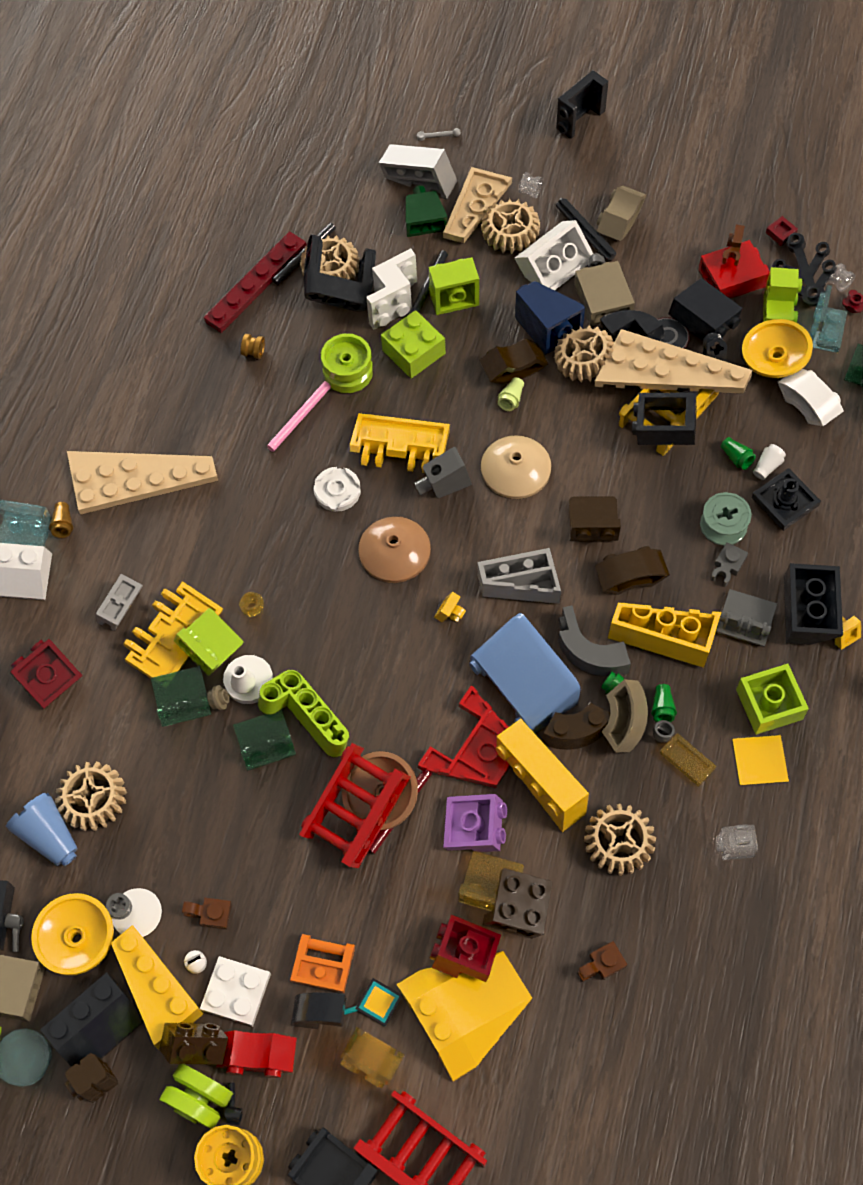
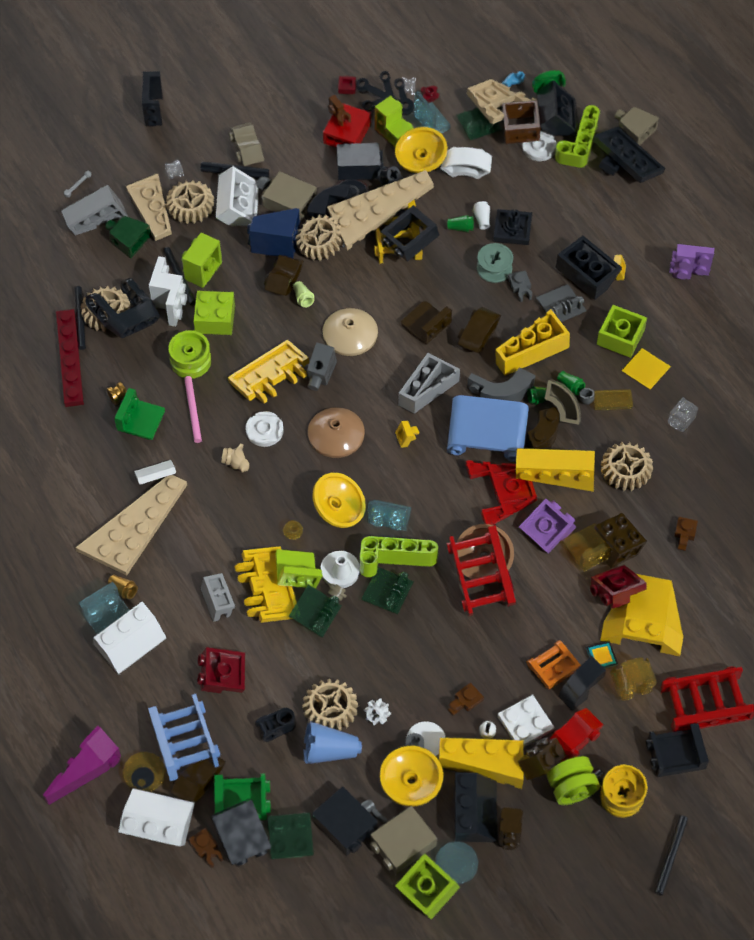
camera: 50 degrees left, 5 degrees down
(27, 766) = (275, 725): none -> black piece
(119, 843) = (377, 712): none -> white gear
(201, 443) = (155, 472): none -> white tile
(244, 380) = (138, 416): none -> green bracket
(279, 492) = (235, 458): none -> tan animal
(330, 613) = (344, 495): none -> yellow dish
(347, 669) = (388, 515): none -> clear light blue bracket

